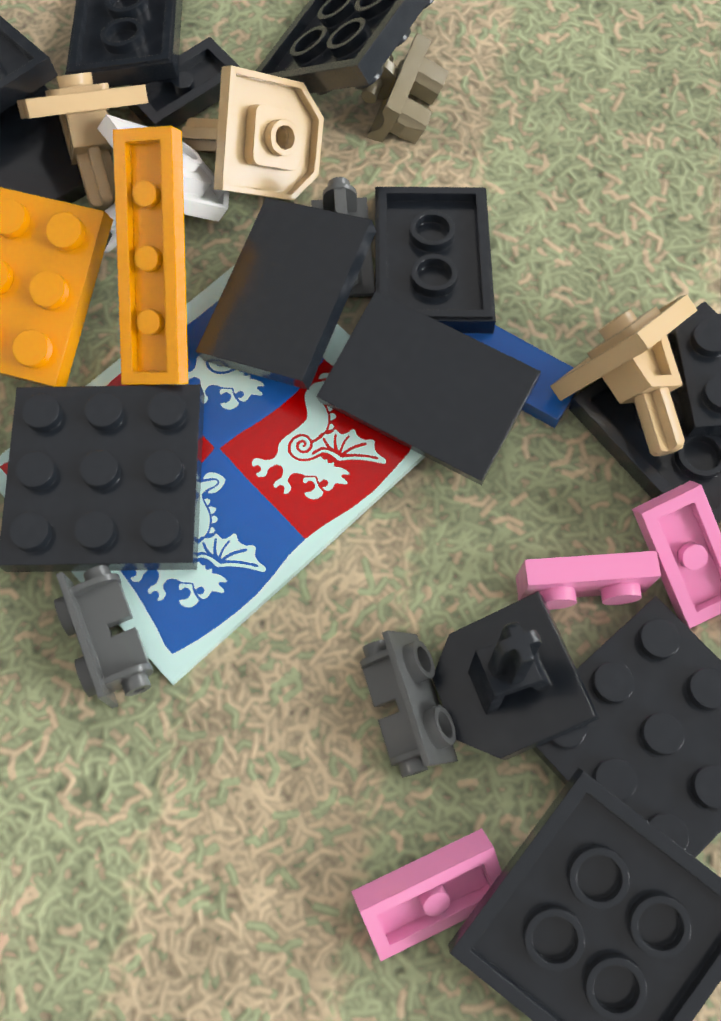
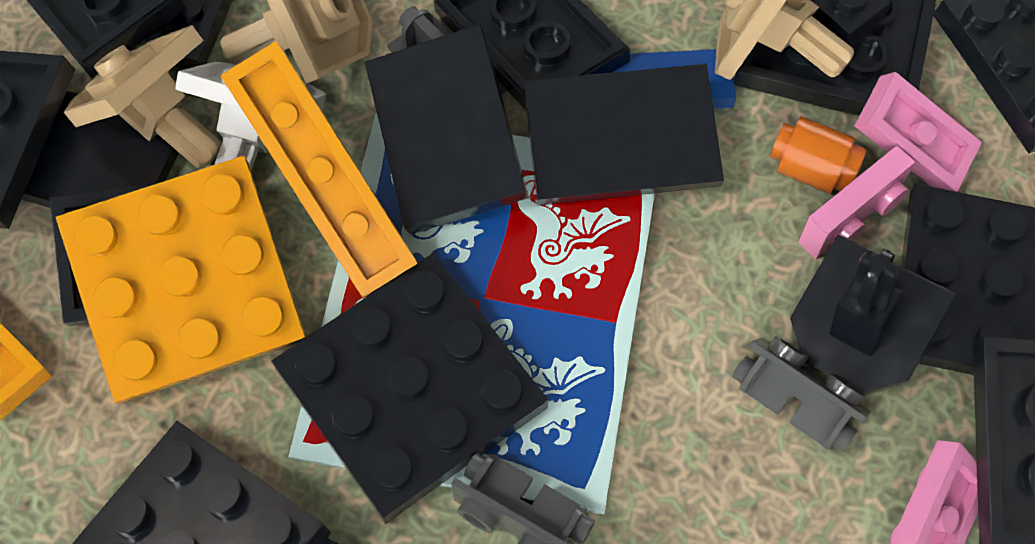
camera: 35 degrees left, 5 degrees down
(586, 513) = (817, 155): none -> orange brick

